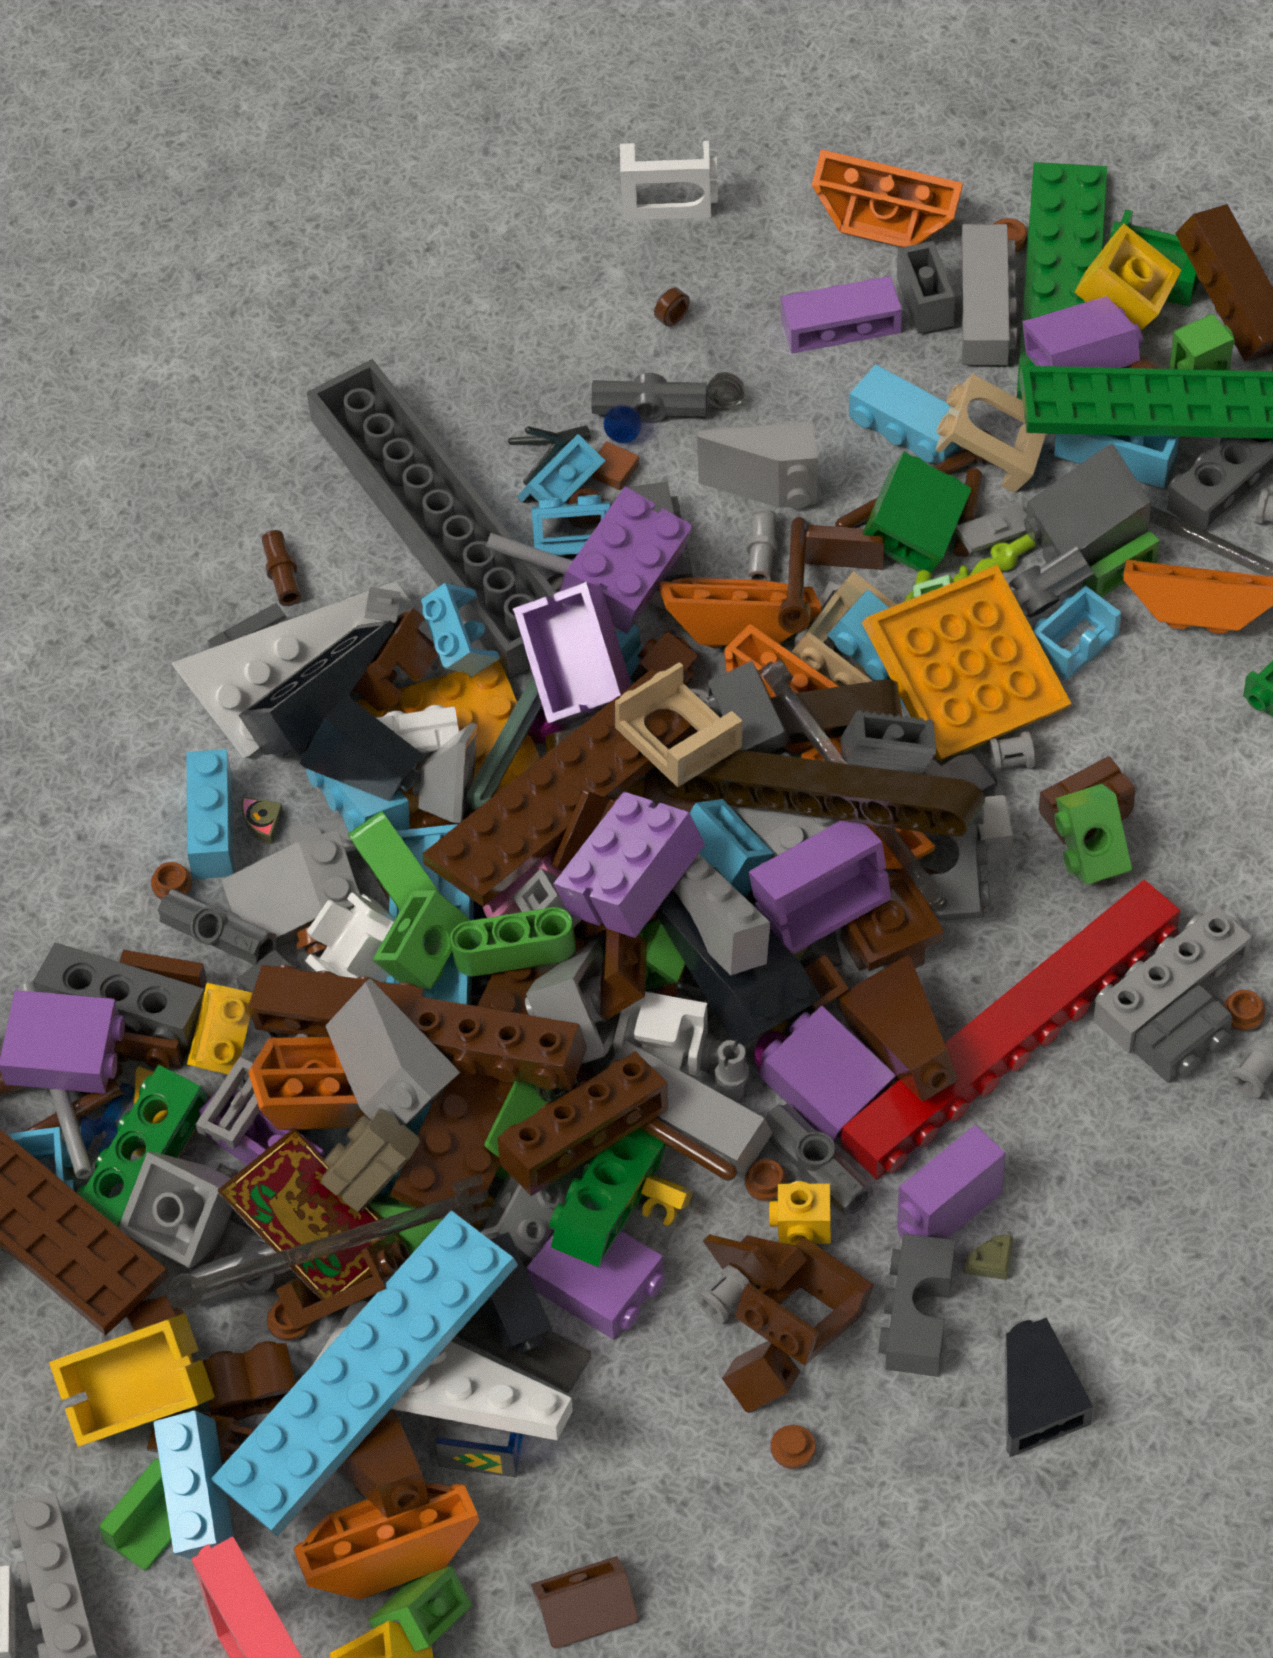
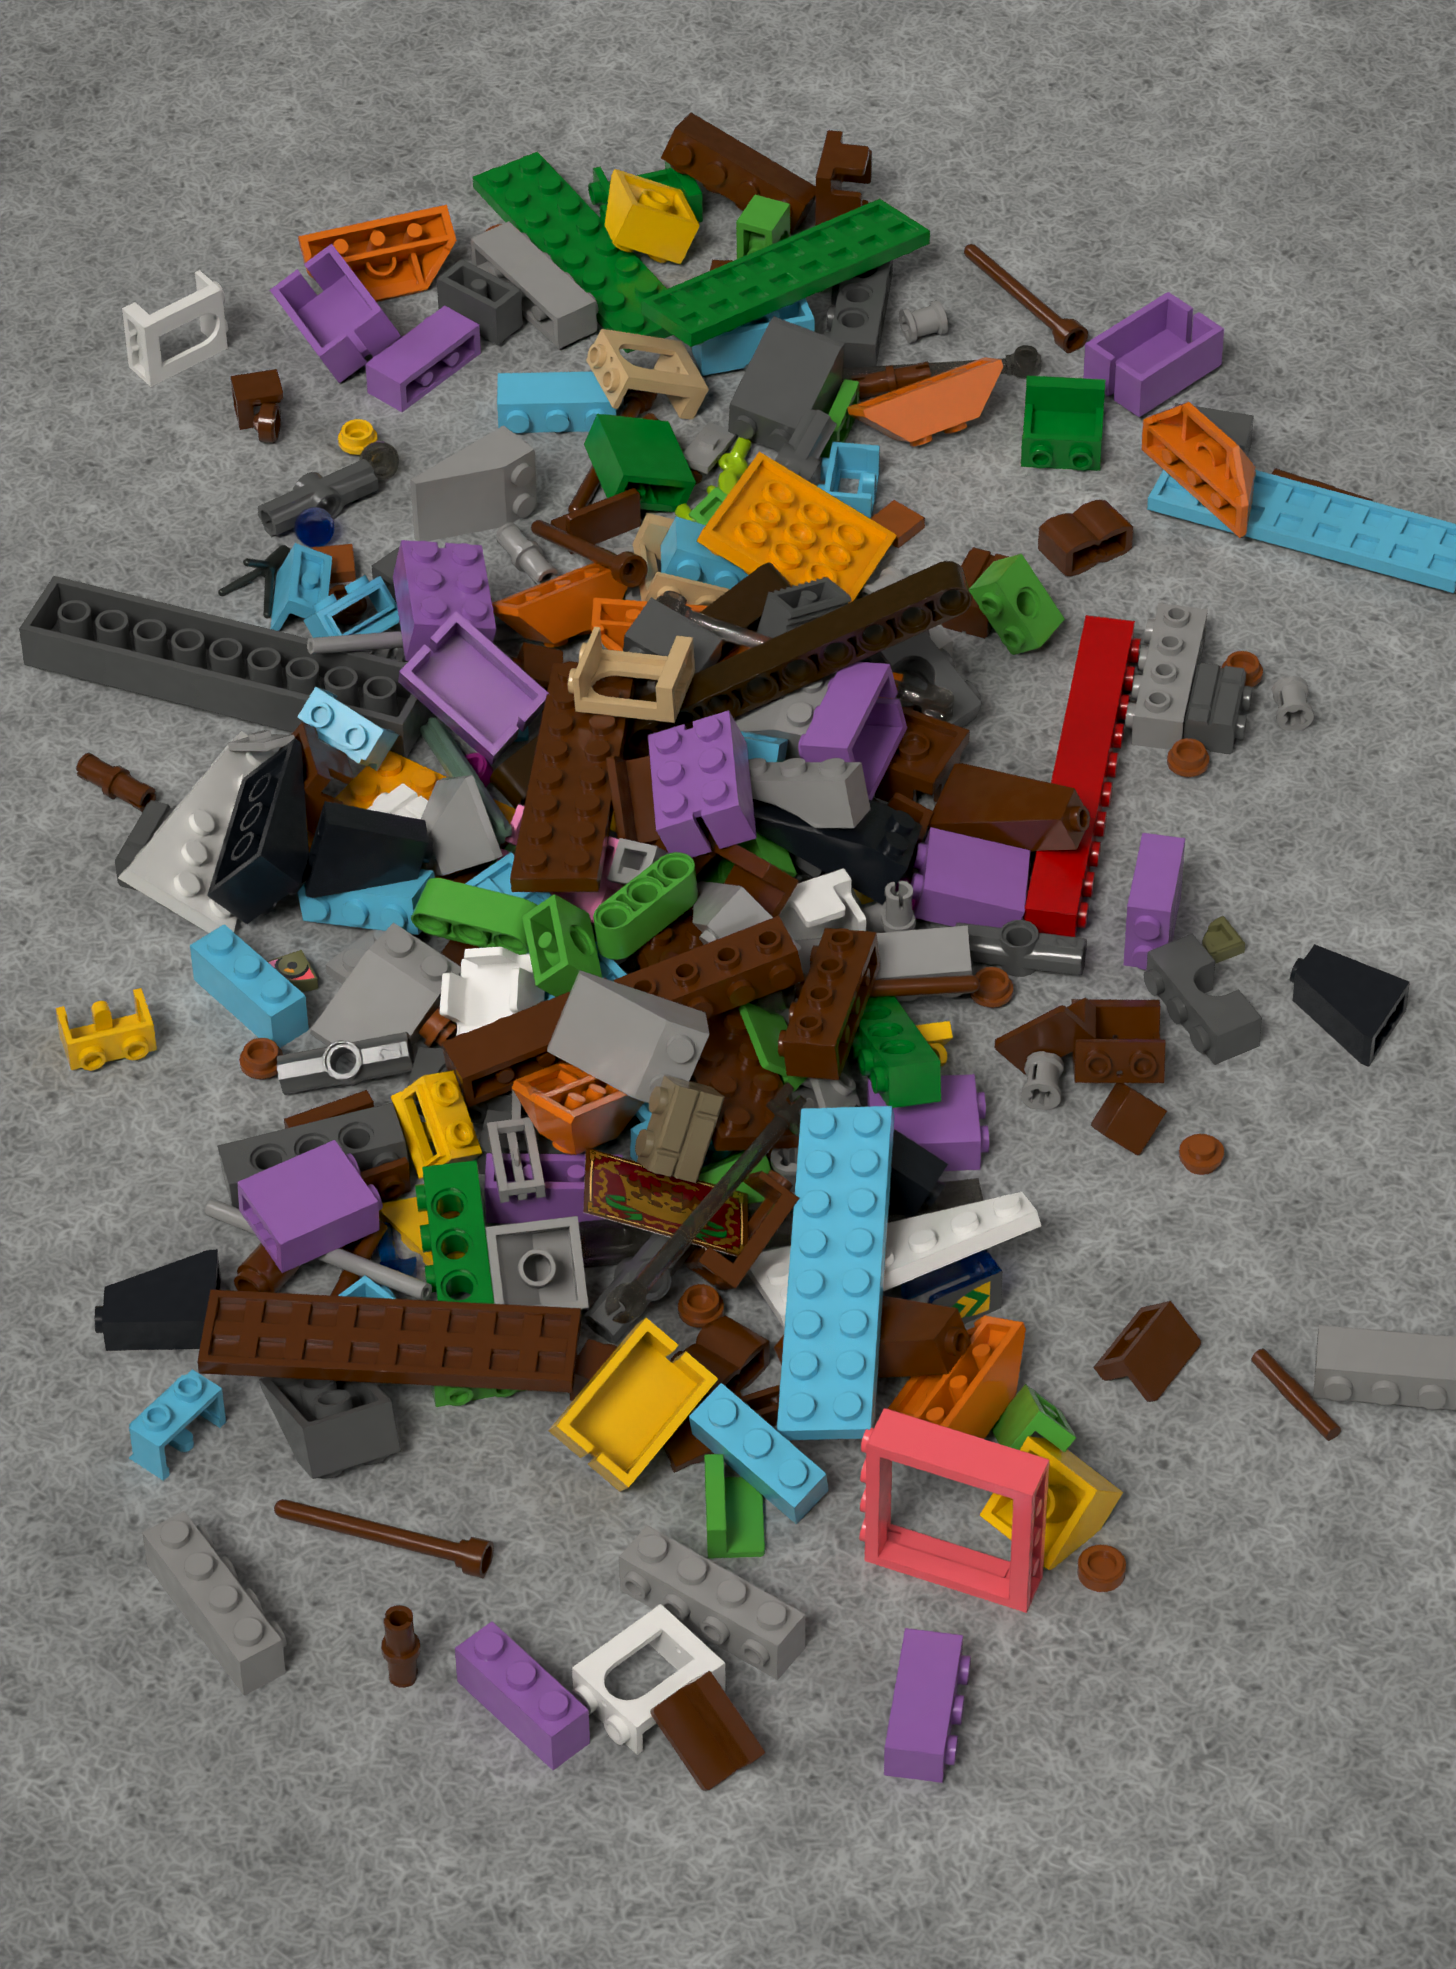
camera: 40 degrees left, 10 degrees down
(86, 778) = (107, 1037): none -> yellow window
(681, 272) = (252, 391): none -> reddish brown panel
(730, 351) = (356, 435): none -> yellow plate
(797, 243) = (342, 320): none -> medium lavender piece
(802, 1212) = (1050, 983): yellow brick -> none
(1083, 336) = (655, 264): medium lavender brick -> none
(1086, 691) = (901, 521): none -> dark orange tile
(1121, 1066) = (1188, 758): none -> dark orange plate
(1200, 551) = (890, 379): none -> reddish brown pin
(1224, 800) = (1084, 538): none -> reddish brown brick

